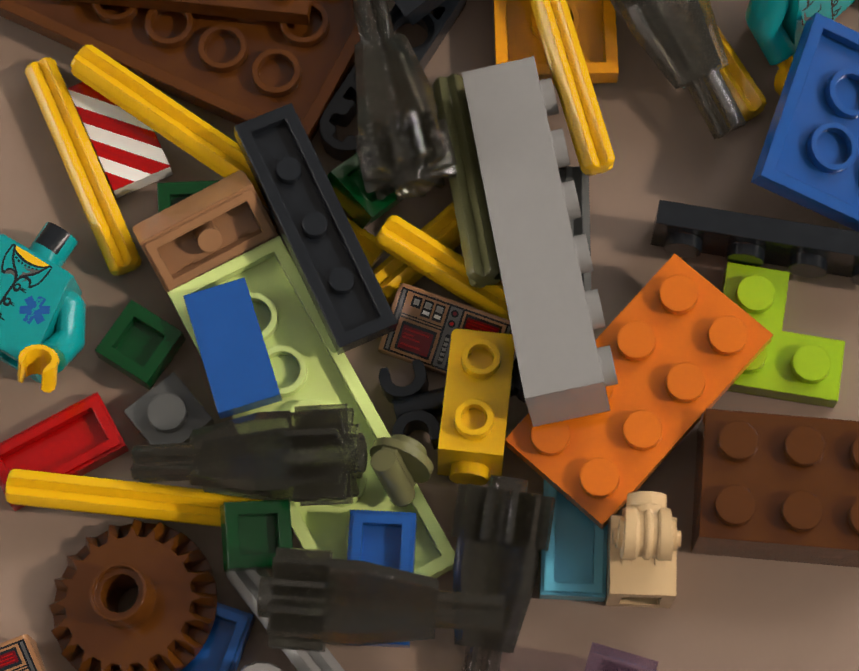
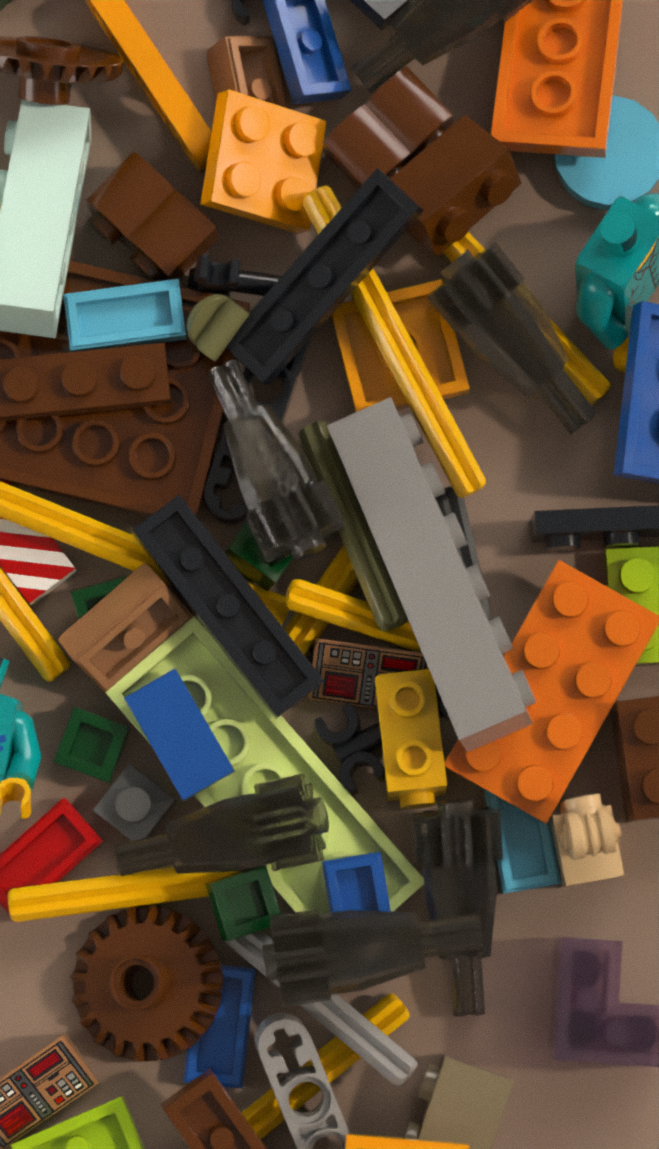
camera: 15 degrees left, 10 degrees up
(399, 466) = (355, 813): olive plate -> none

